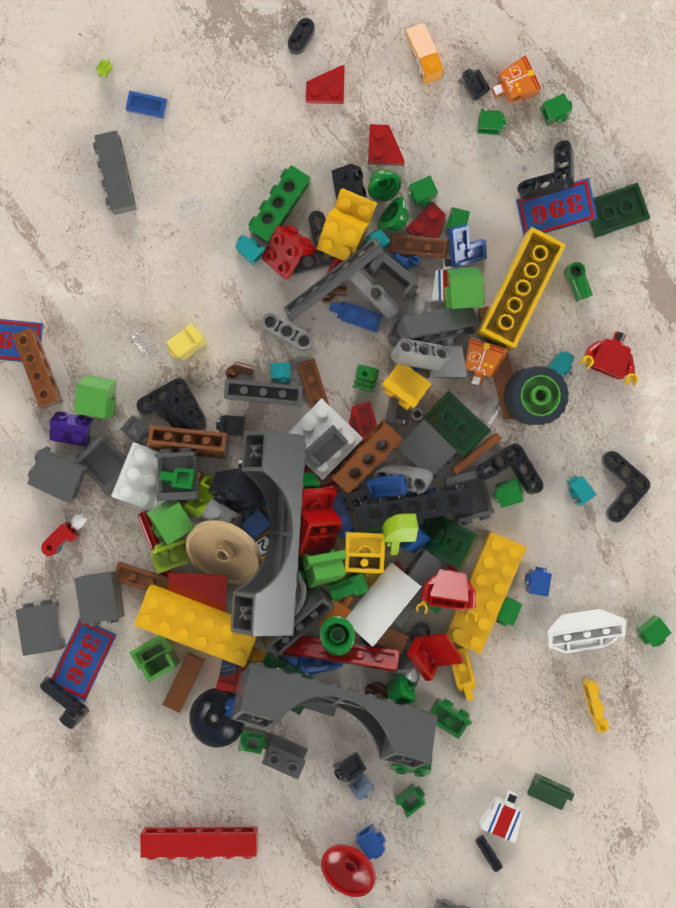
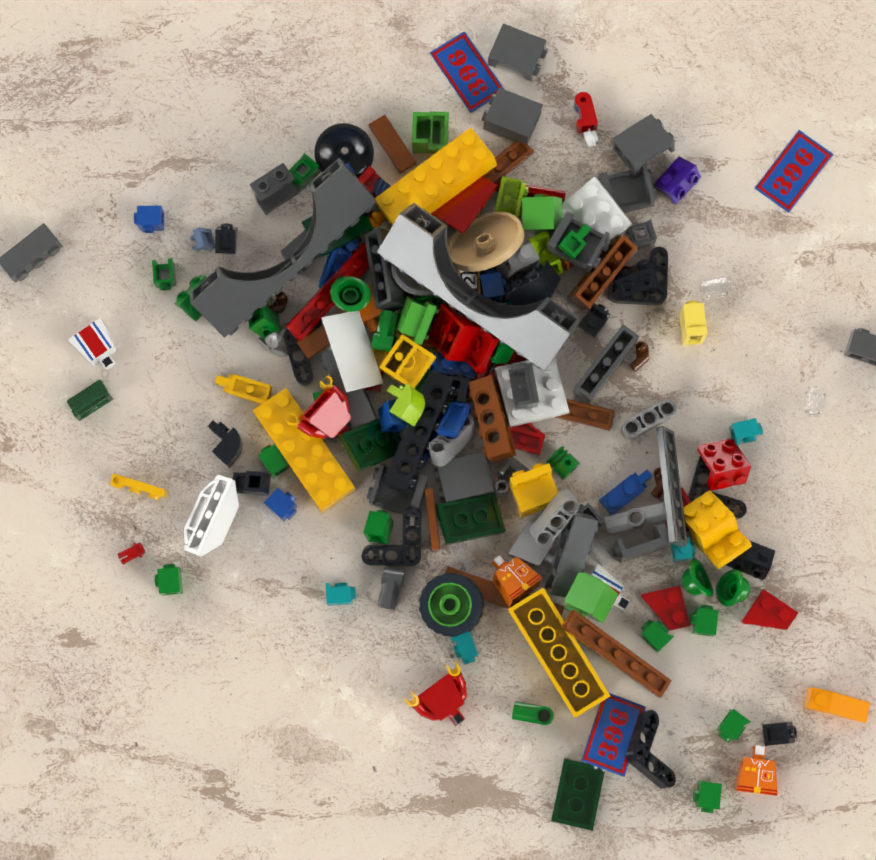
camera: 130 degrees right, 10 degrees down
(37, 368) = (749, 182): dark orange brick -> none
(75, 709) = (428, 39): black beam -> none
(95, 397) = (692, 216): bright green plate -> none
(198, 842) = (246, 75): red brick -> none
(280, 373) = (614, 390): teal brick -> none
(288, 177) = (769, 494): green brick -> none
(327, 87) = (856, 595): red wing -> none
(348, 870) = (140, 183): red dish -> none
(406, 262) = (647, 566): blue arm -> none
(418, 245) = (656, 586): dark orange tile -> none
(433, 651) = (280, 368): red bracket -> none
(450, 718) = (212, 351): green bracket -> none
(462, 250) = (628, 621): blue plate -> none
(488, 853) = (71, 313): black axle -> none
(494, 244) = (616, 653): none -> dark orange tile
(516, 653) = (231, 445): none -> black brick
(537, 616) = (252, 483): none -> black brick
(545, 454) = (391, 583): none -> dark grey piece
(631, 488) = (311, 644): black beam -> none
(647, 674) = (133, 552): none -> red pin

